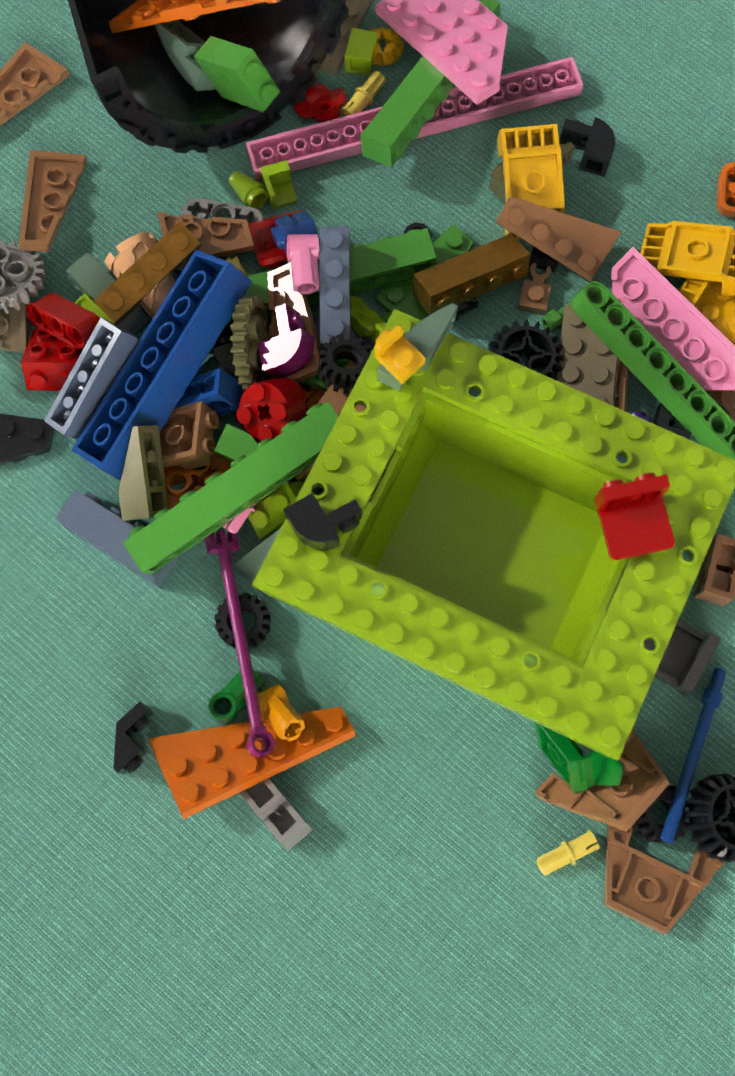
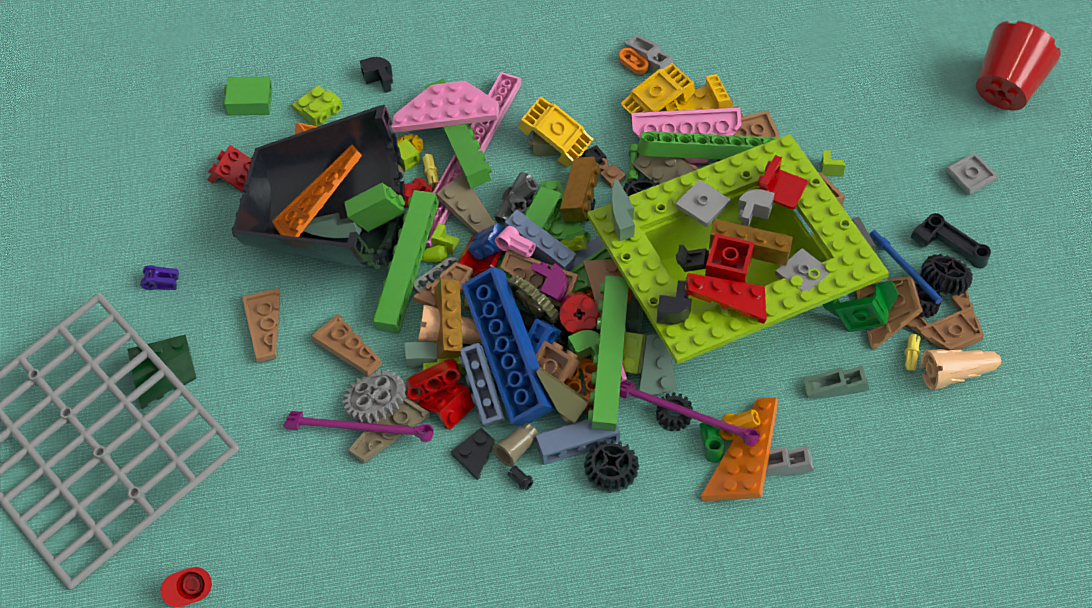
camera: 50 degrees left, 20 degrees down
(18, 515) = (524, 481): none -> black pin
(54, 476) = (515, 444): none -> dark tan plant
(106, 615) = (609, 472): none -> black gear
(128, 751) = (696, 506): black slope -> none
(204, 166) = (406, 262): none -> bright green brick
(338, 174) = (465, 205): none -> dark tan wing
(342, 349) = (581, 265): black tyre -> none
(397, 589) = (730, 294): none -> red wing
(398, 214) = (516, 196): none -> dark grey piece
(398, 354) = (623, 215): yellow bracket -> none
(414, 489) = (692, 259): none -> pearl dark grey bracket
(441, 789) = (836, 383): none -> sand green slope
(445, 539) = (729, 258): none -> red brick
(502, 545) = (767, 247): none -> pearl gold brick
(522, 437) = (702, 203): none -> light grey plate
(527, 633) = (800, 265): none -> light grey plate
(565, 238) = (594, 140): medium nougat wing -> none
(574, 504) = (755, 203): none -> light grey brick
(586, 928) = (955, 366): none -> light nougat cone
(595, 141) = (557, 94): black brick -> none

